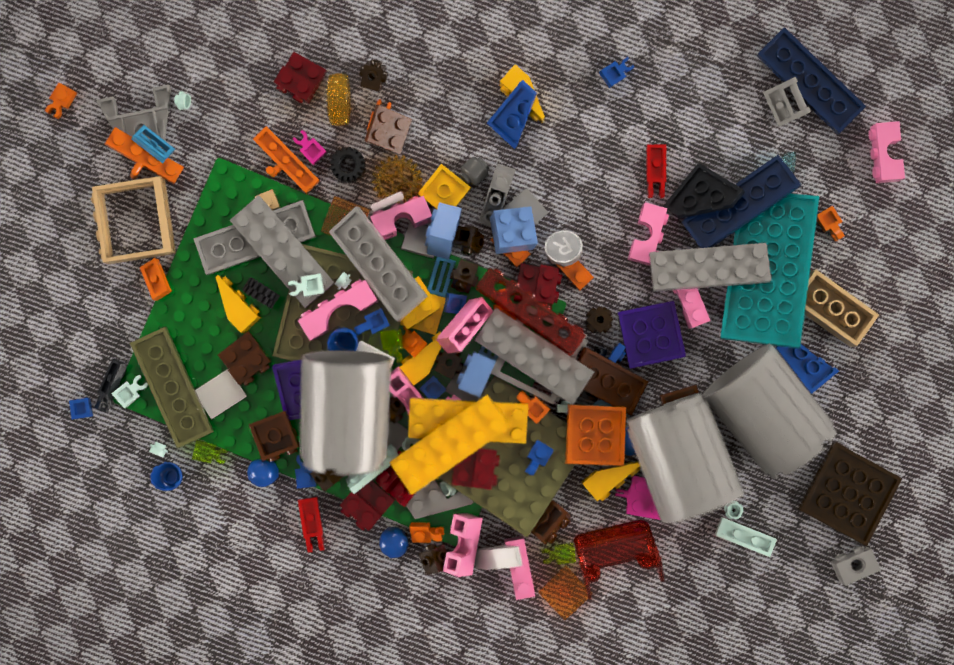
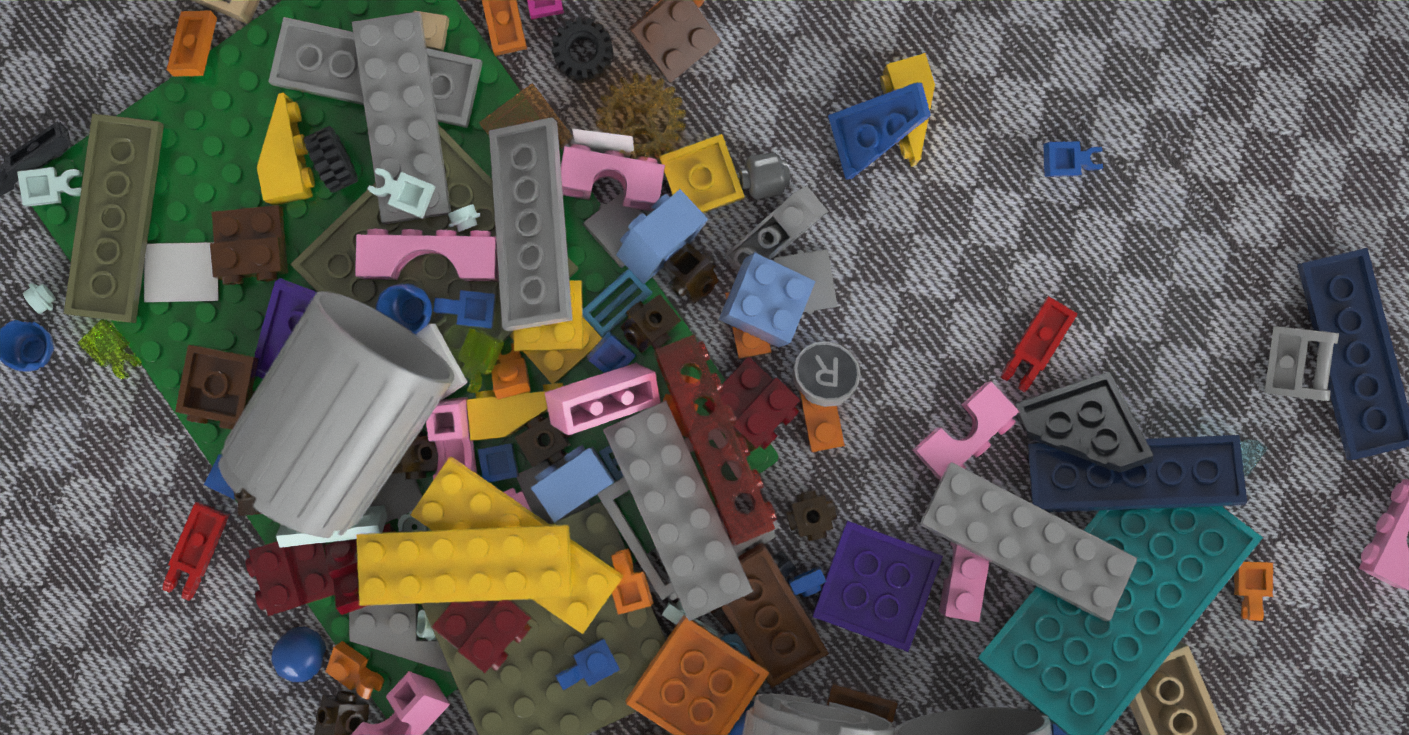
camera: 35 degrees right, 0 degrees up
(262, 472) = (168, 430): blue hair -> none

